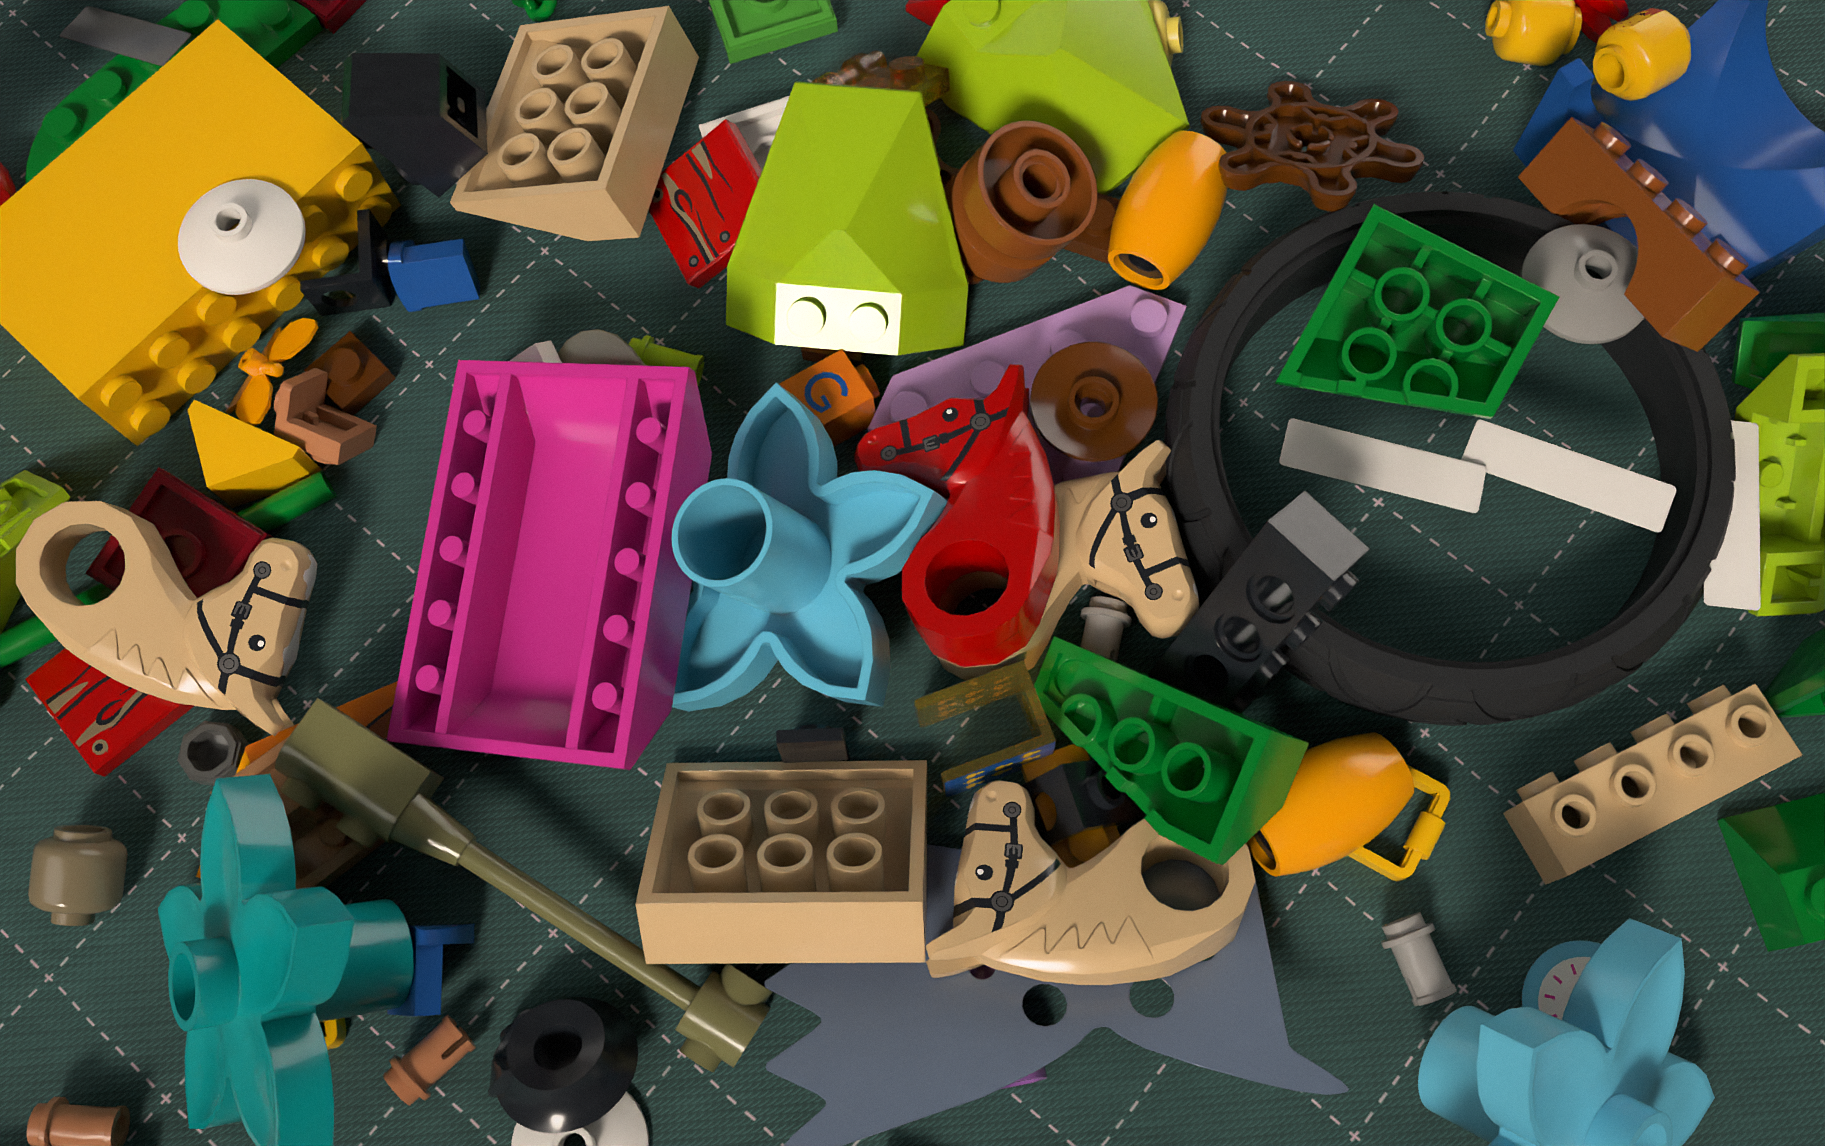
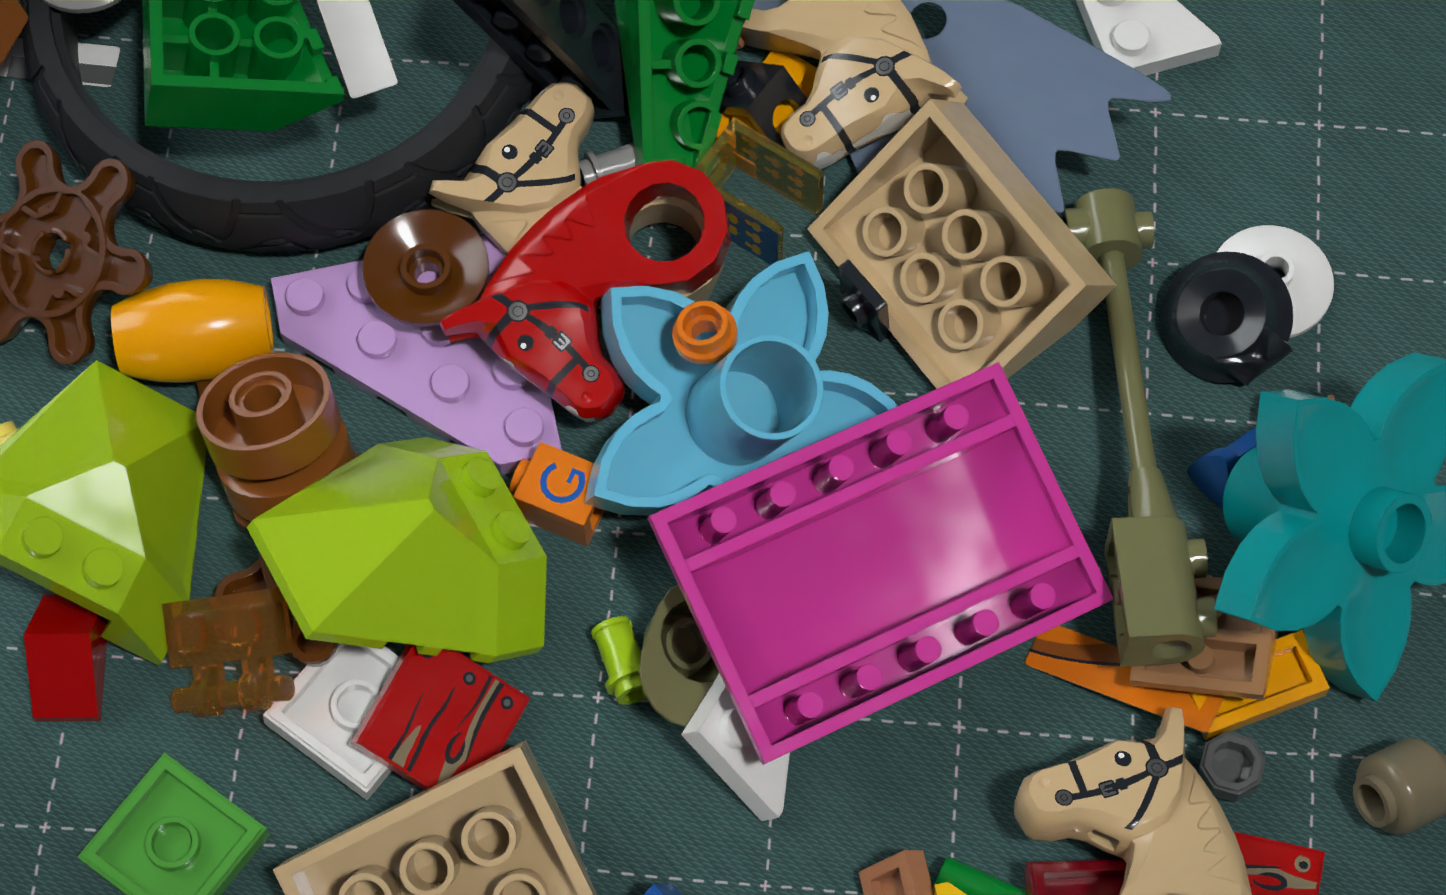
camera: 130 degrees left, 5 degrees down
(838, 526) = (701, 318): none -> orange plate

